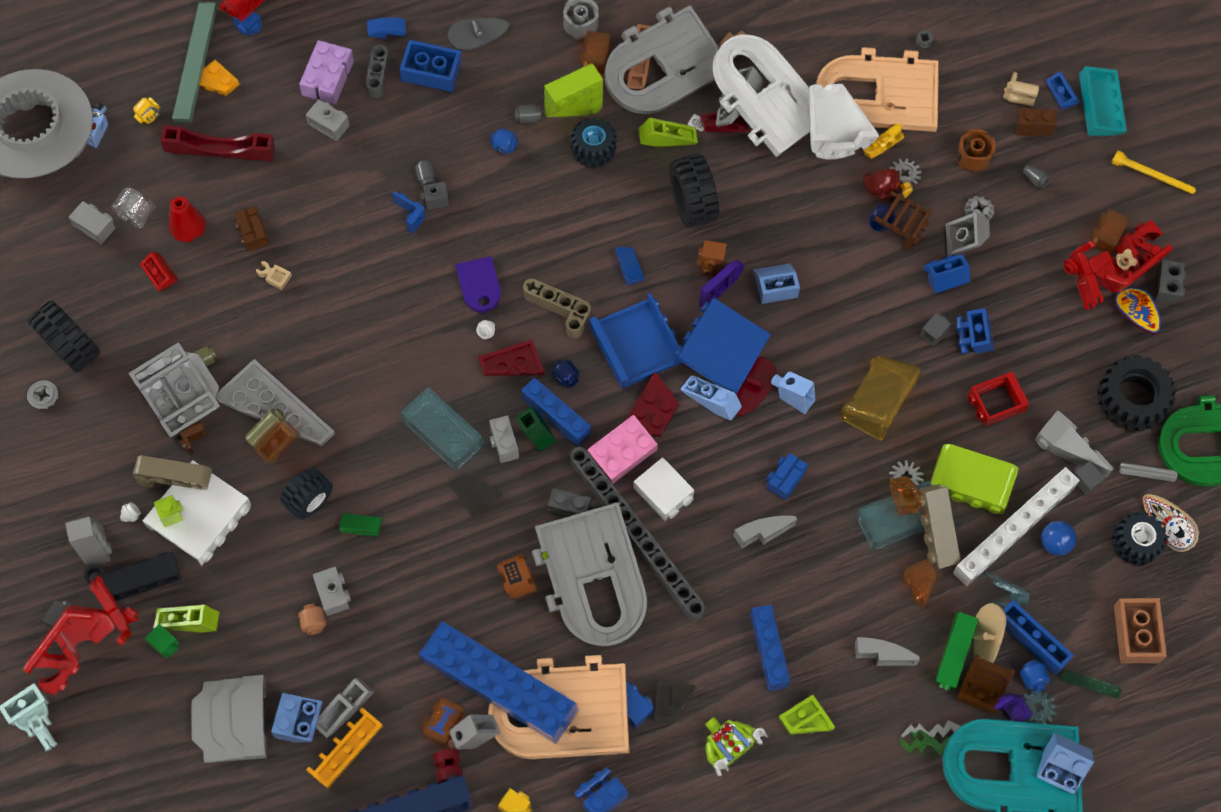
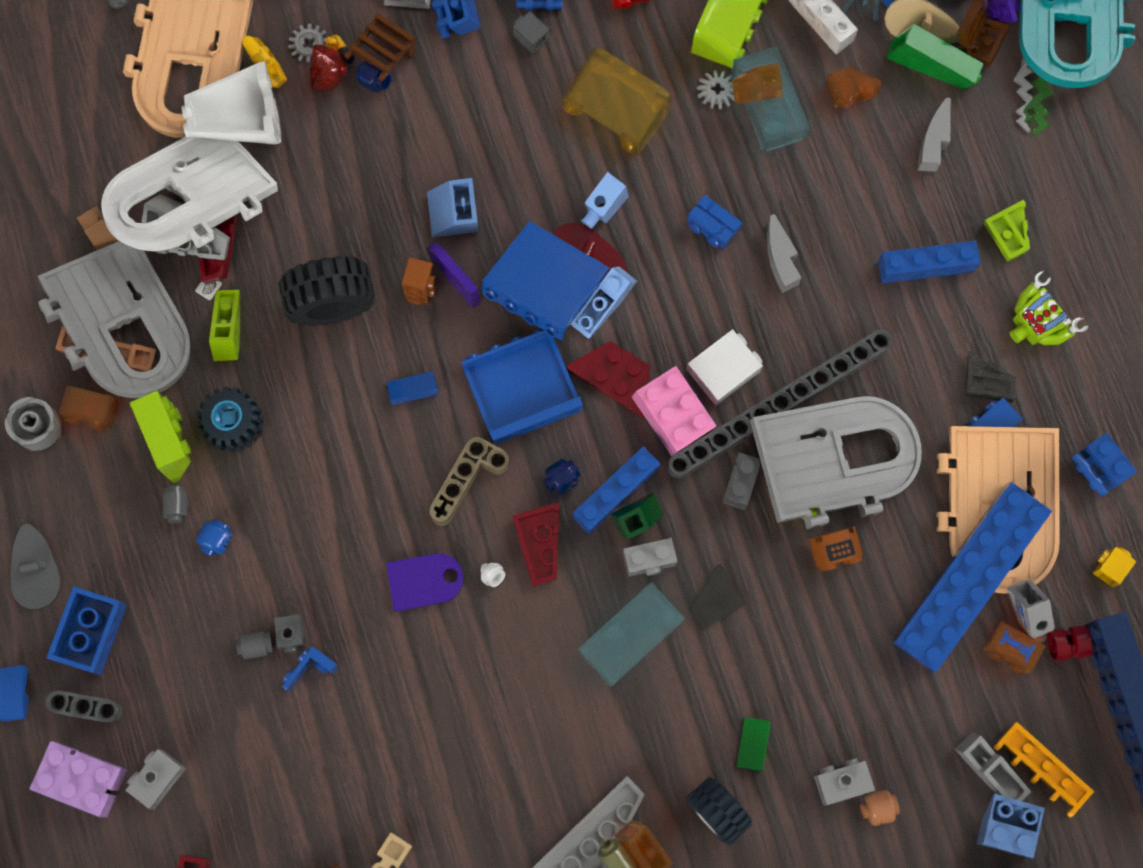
camera: 85 degrees left, 10 degrees up
(938, 526) = (795, 53): dark tan brick -> none

